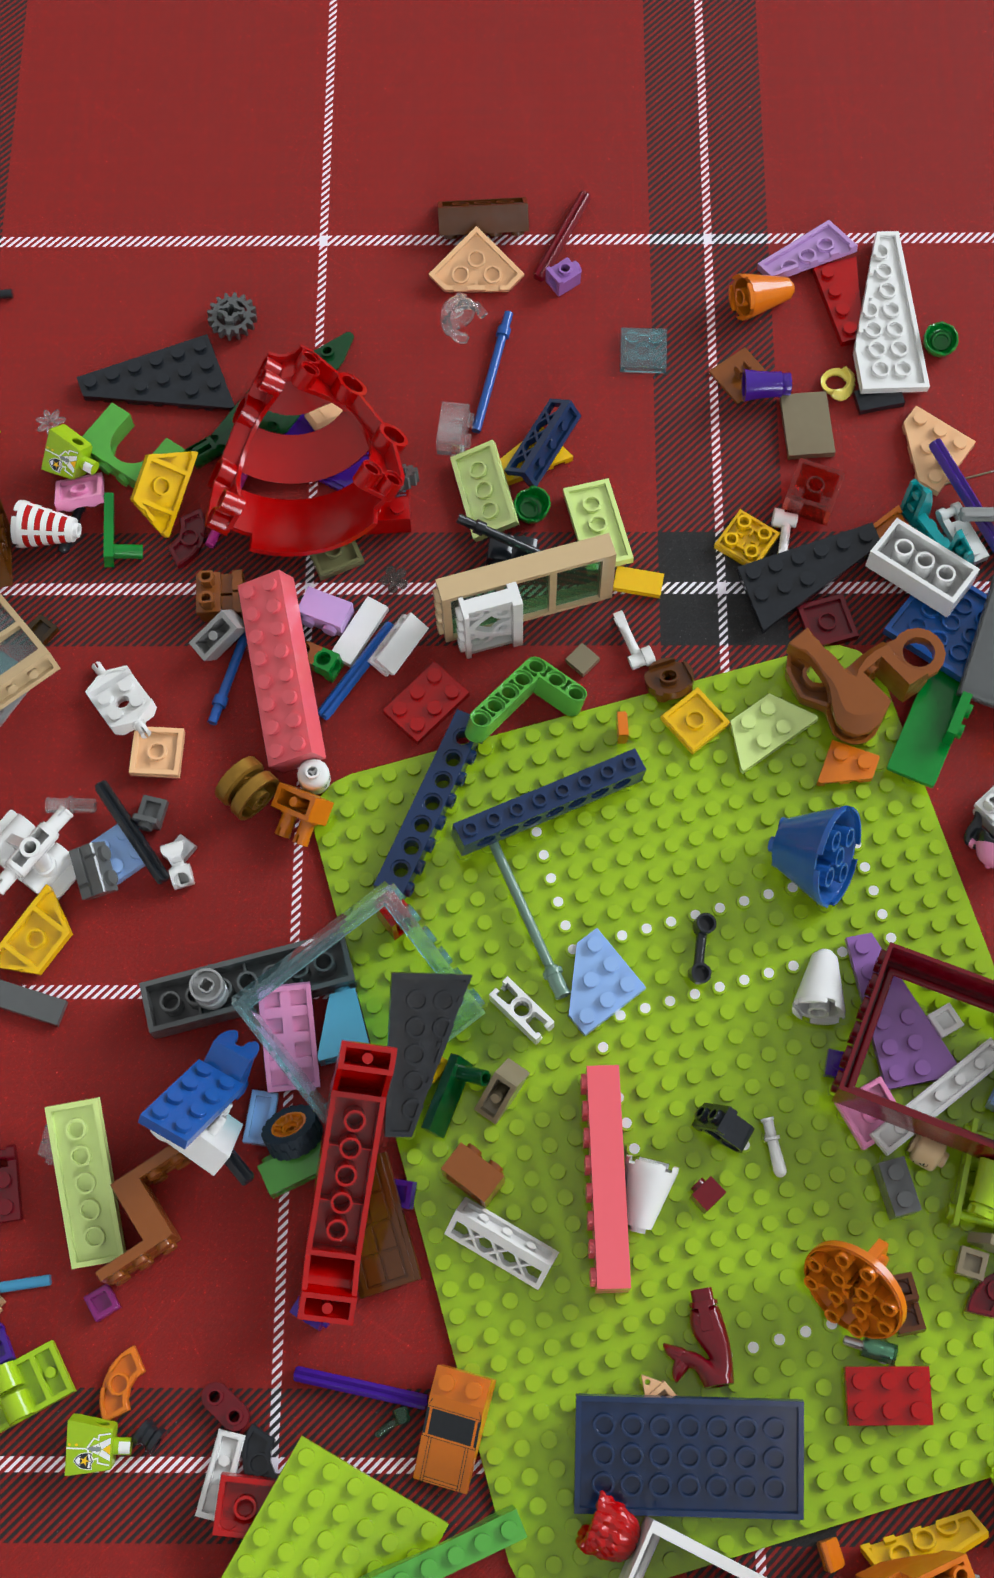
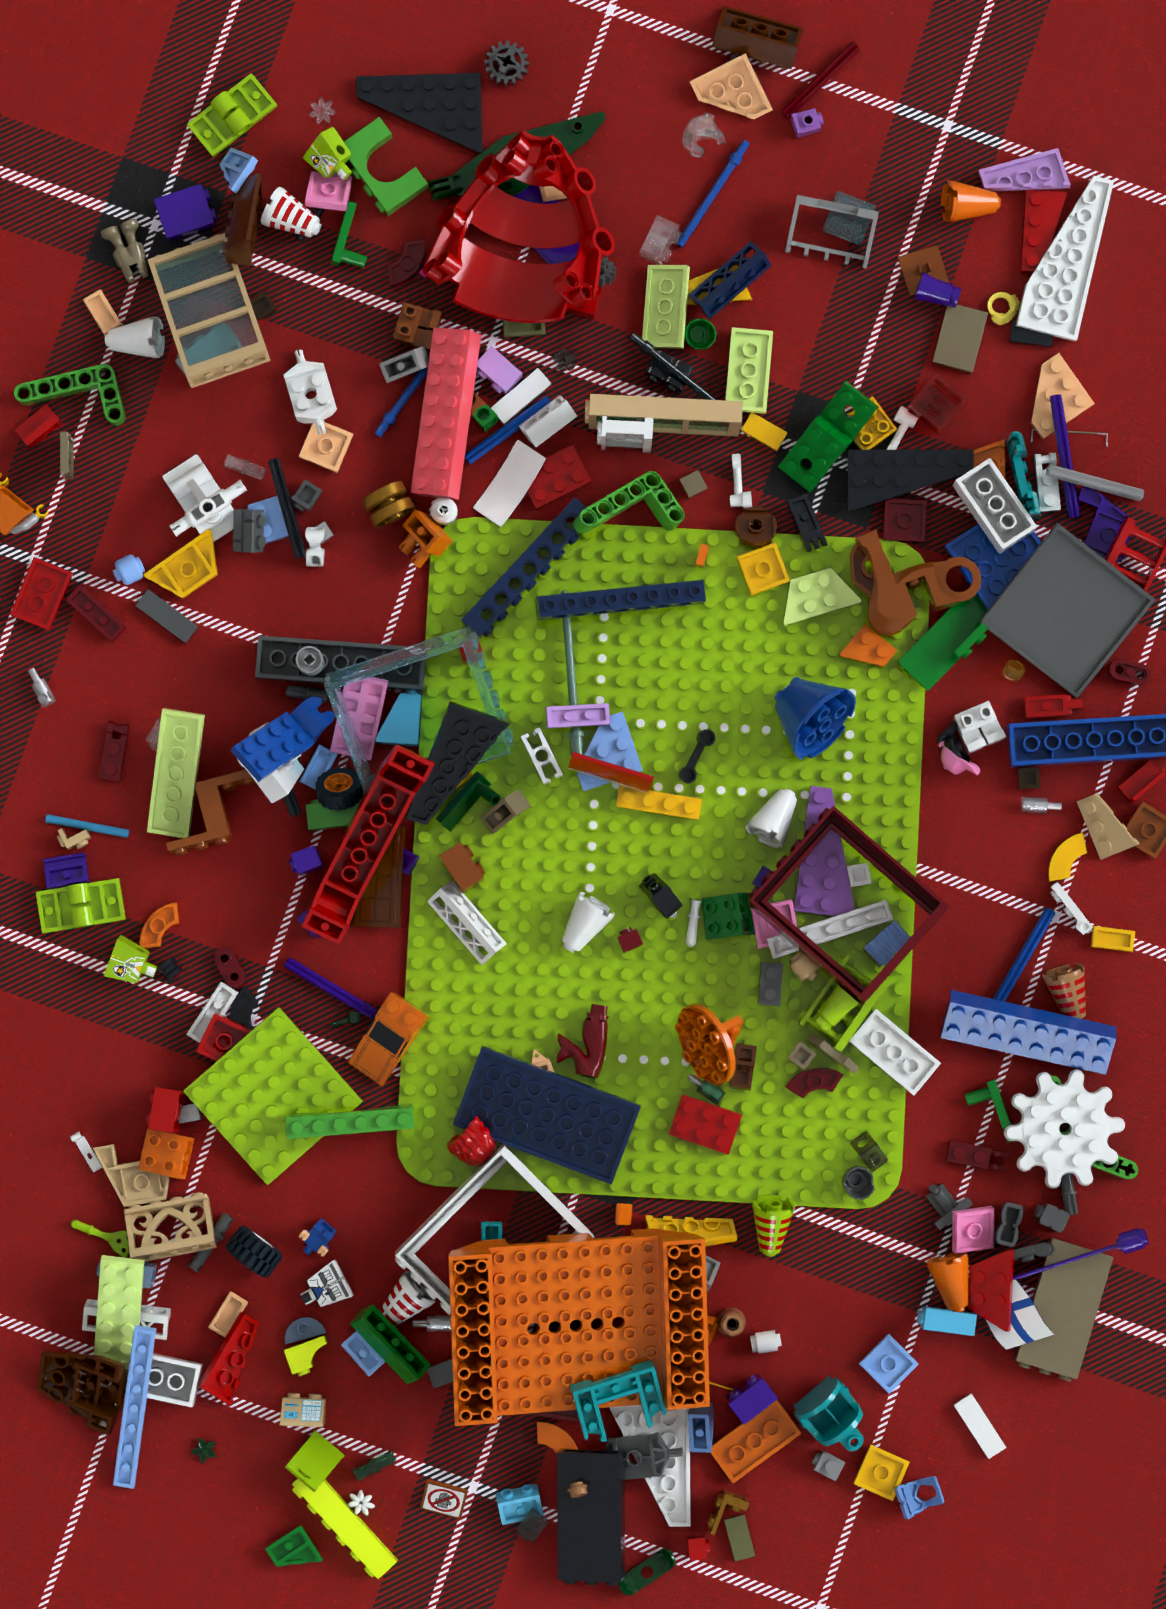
camera: 15 degrees right, 15 degrees up
(102, 1302) = (162, 863): magenta tile -> none
(162, 487) = (399, 213): yellow wing -> none
(208, 1036) = (305, 693): none -> dark grey axle
(279, 1235) = (306, 861): none -> dark purple piece
(379, 723) = (510, 483): none -> white sticker
(547, 948) = (577, 715): none -> lavender plate
(607, 1179) = (559, 903): coral brick -> none
(611, 997) = (610, 772): none -> red slope
(657, 333) = (838, 207): none -> light grey hinge
(678, 1018) = (659, 803): none -> yellow plate
(710, 560) = (828, 436): none -> green bracket
(723, 657) = (806, 522): none -> black hinge
(811, 1123) = (727, 916): none -> green bracket
(940, 339) = (1104, 299): green hair -> none

